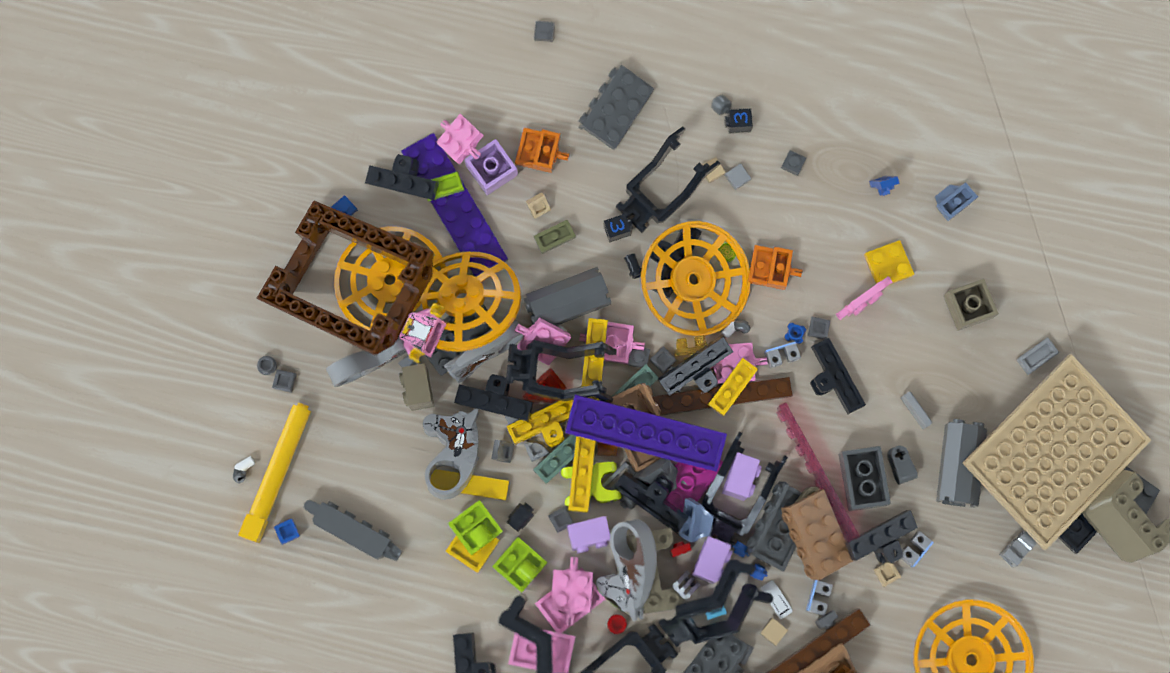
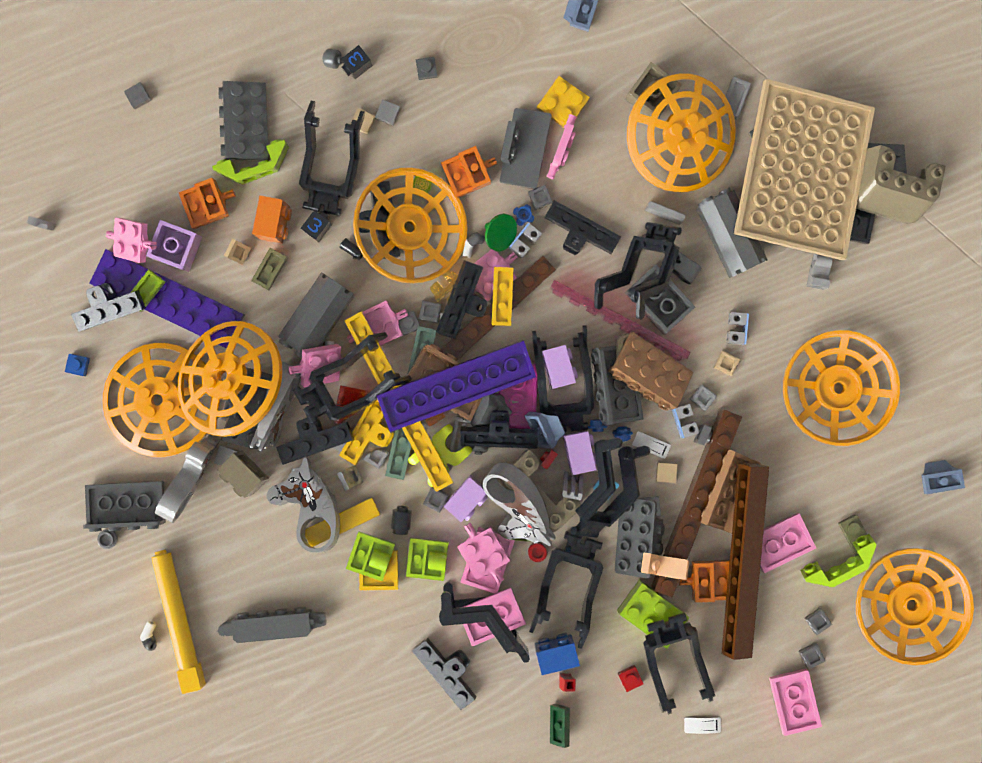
camera: 30 degrees left, 10 degrees up
(284, 381) = (131, 541): flat silver tile -> none
(287, 531) = (220, 661): blue plate -> none
(301, 347) = (123, 505): none -> dark grey bracket
(313, 230) = (64, 401): reddish brown slope -> none
(396, 78) = (40, 223): none -> light grey tile
(422, 332) = (211, 432): torso -> none
(585, 198) = (271, 219): none -> orange brick
(589, 150) = (277, 153): none -> lime slope
(767, 333) = (500, 232): none -> green shield
(832, 279) = (524, 148): none -> dark grey bracket
(848, 589) = (703, 397): none -> light grey tile
(883, 539) = (706, 339): black plate -> none
(884, 184) = (515, 35): blue plate -> none
(895, 426) = (656, 239): none -> black piece
(963, 351) = (673, 129): none -> light orange dish

